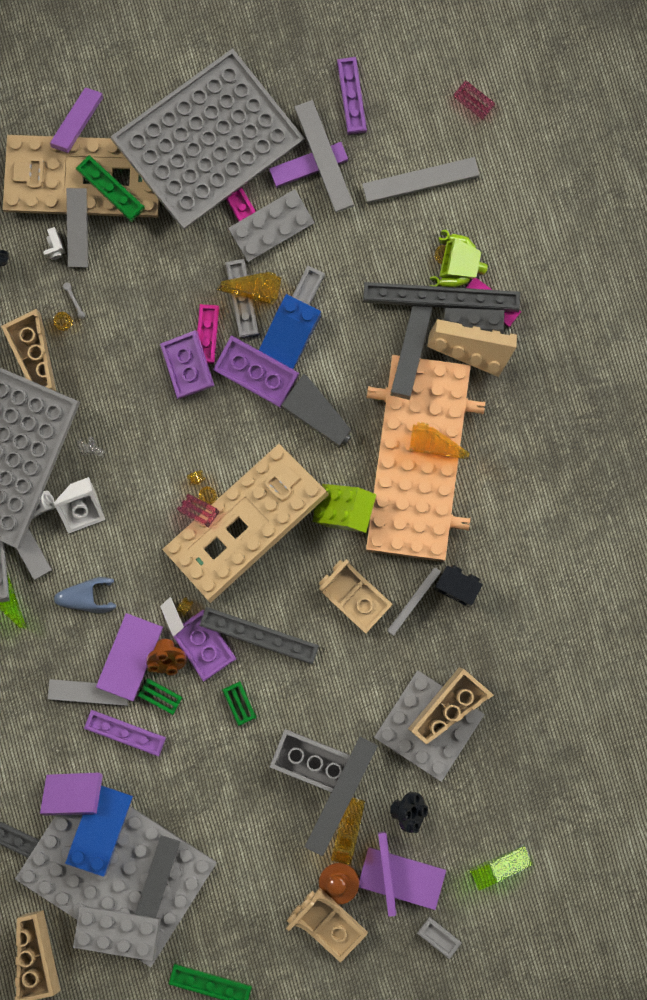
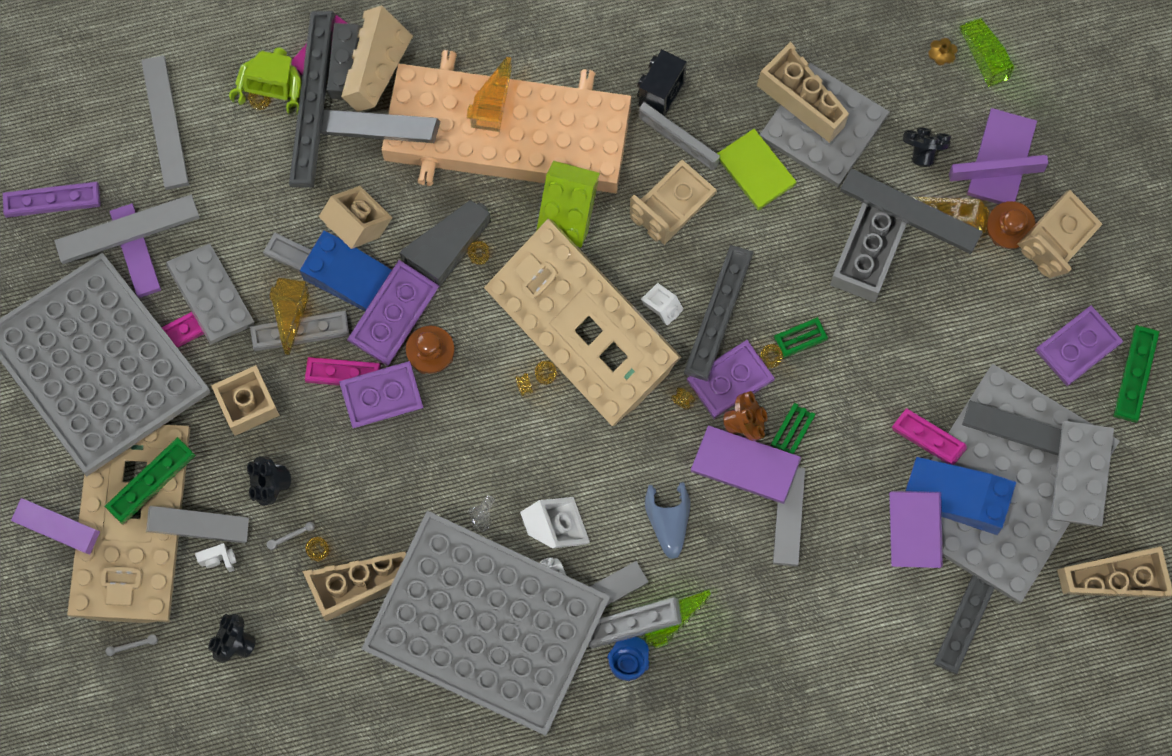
camera: 90 degrees left, 10 degrees down
(114, 279) = (267, 480): none -> black plate
(125, 733) = (838, 472): medium lavender tile -> none
(151, 807) = (929, 437): none -> dark pink tile
(171, 616) = (696, 413): white sticker -> none
(179, 258) = (245, 400): none -> tan brick
(187, 504) = (555, 397): clear pink tile -> none
(226, 402) = (430, 349): none -> dark orange plate
(227, 674) = (777, 360): none -> clear yellow bush
(234, 937) = (1079, 345): none -> medium lavender tile
(266, 589) = (663, 303): none -> white bracket
(315, 441) = (473, 257): none -> clear yellow bush
(333, 336) = (355, 217): none -> tan brick
(387, 667) = (756, 169): none -> lime tile
(439, 937) = (1068, 118): light grey tile -> none
(471, 107) = (72, 63): clear pink tile -> none
(494, 829) = (940, 54): none -> pearl gold plant

